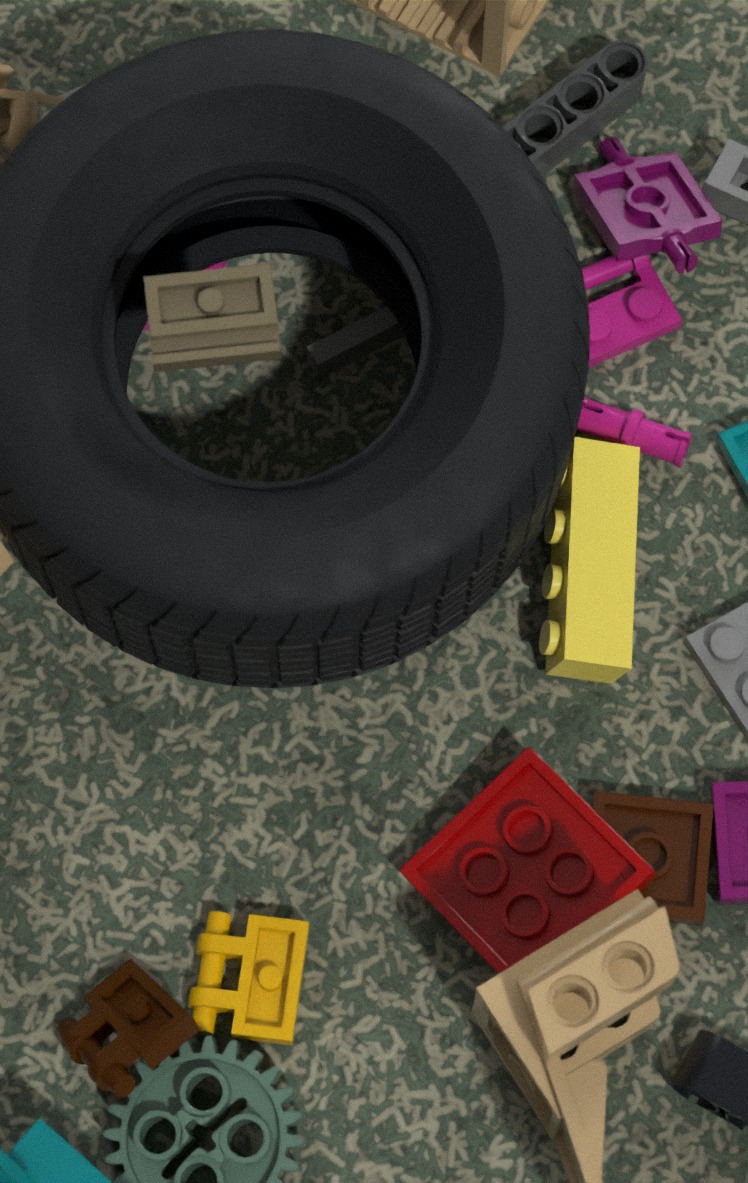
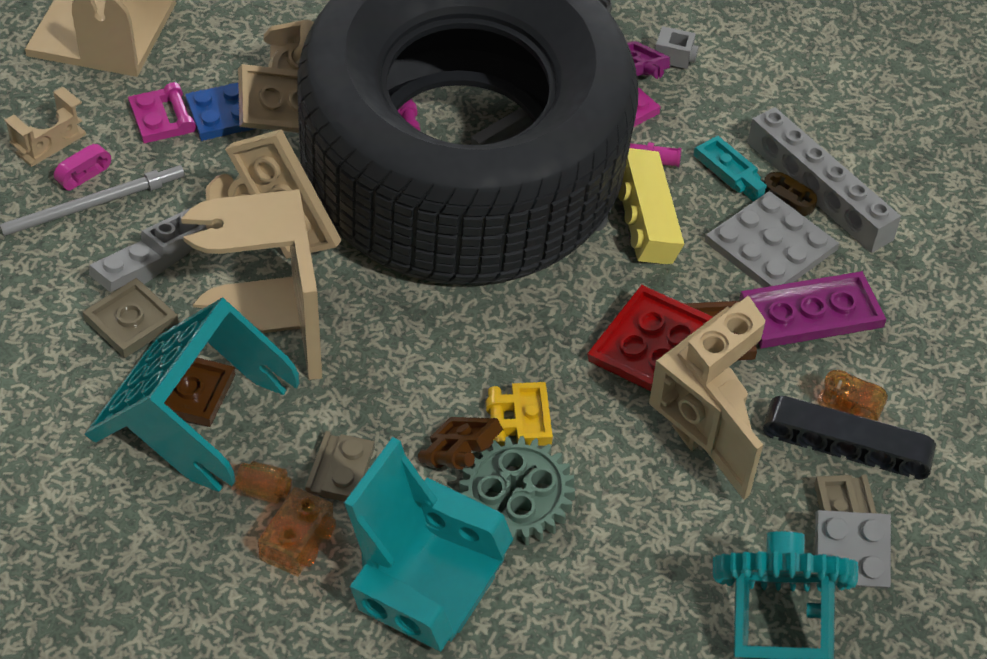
camera: 15 degrees left, 20 degrees down
(212, 317) = (446, 56): dark tan plate -> none

